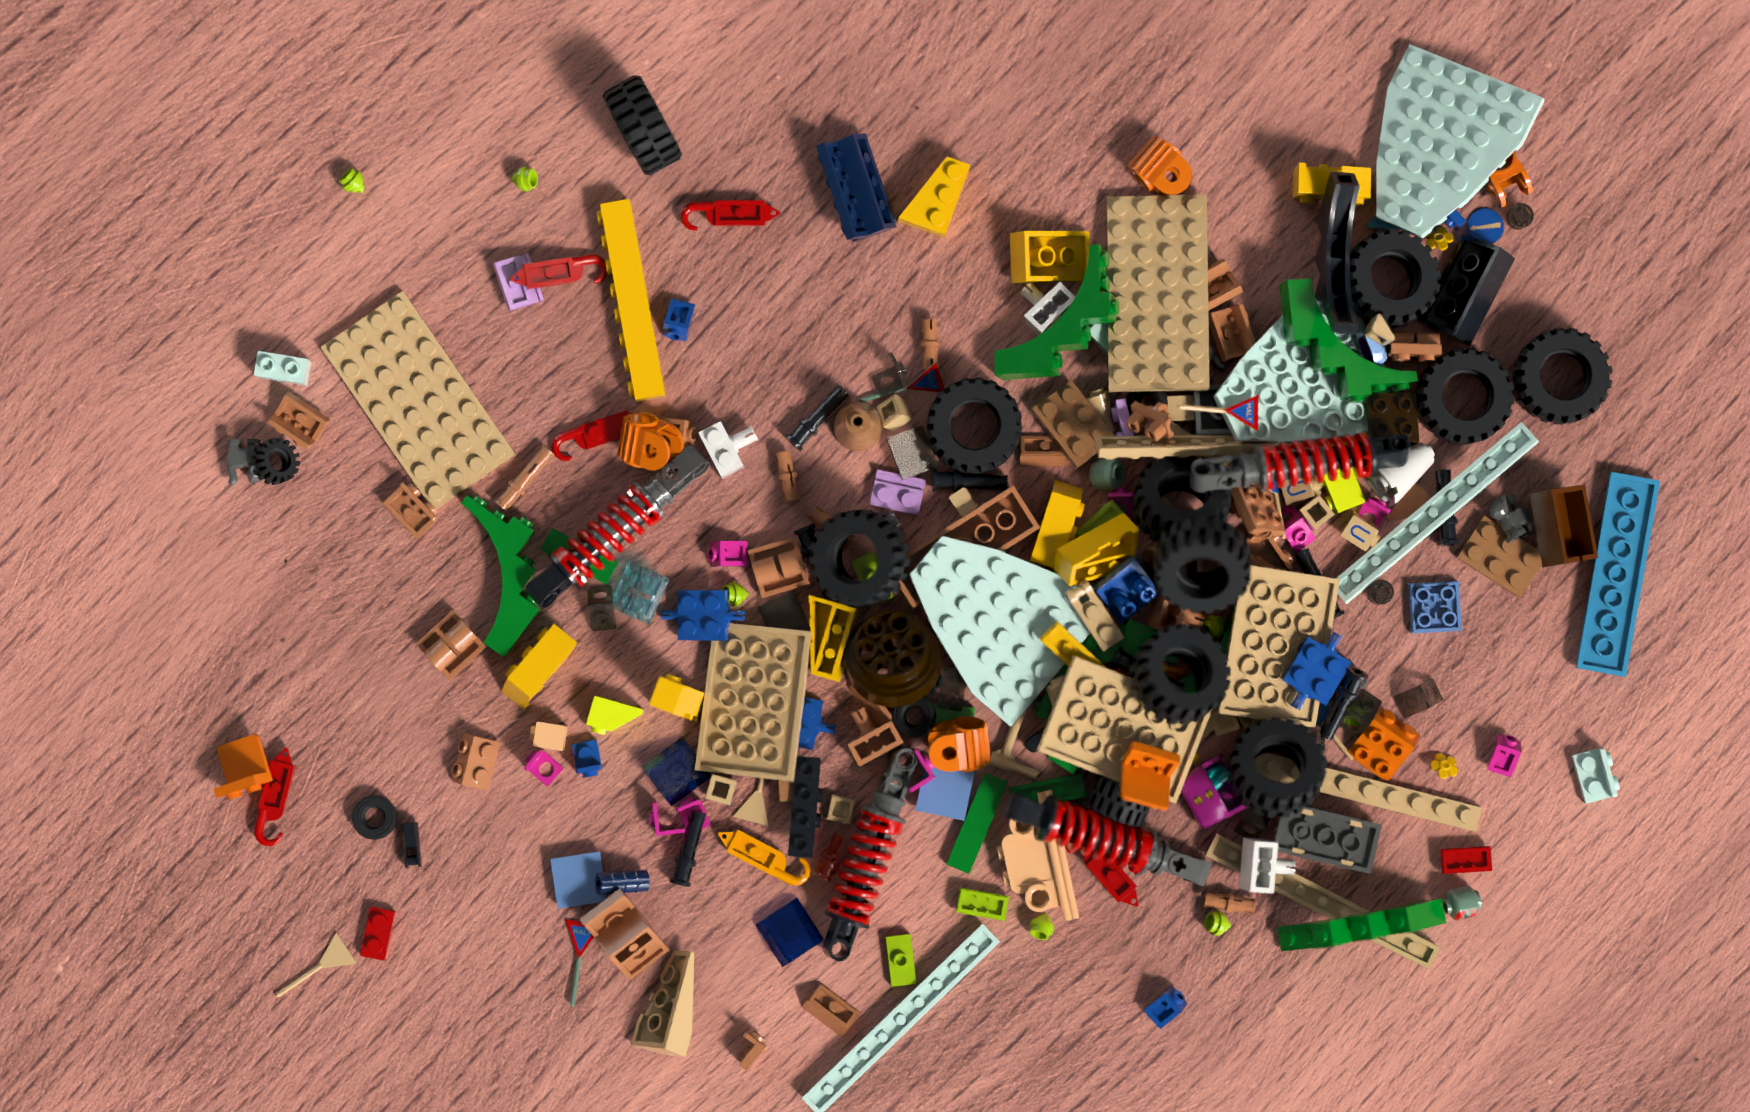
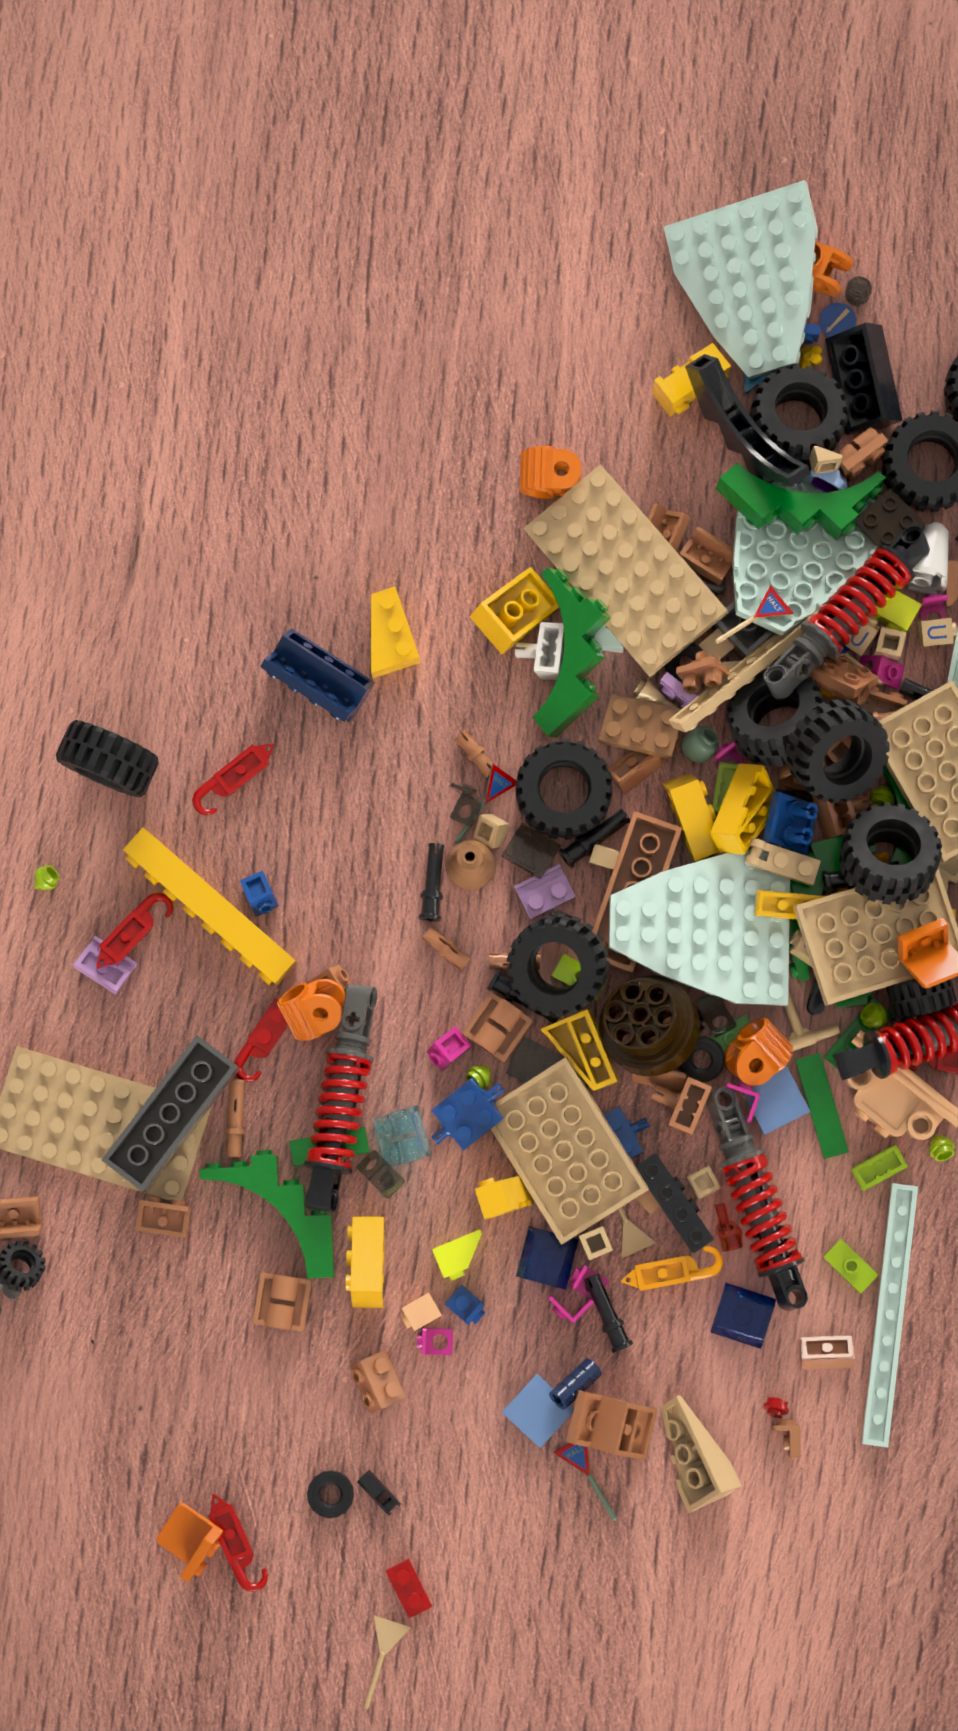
camera: 30 degrees left, 5 degrees down
(477, 436) = (170, 1114): none -> dark grey brick
(724, 447) = (378, 966): white brick -> none
(759, 1020) = (776, 1407): none -> red plate
(1070, 787) = (873, 1015): none -> lime plate

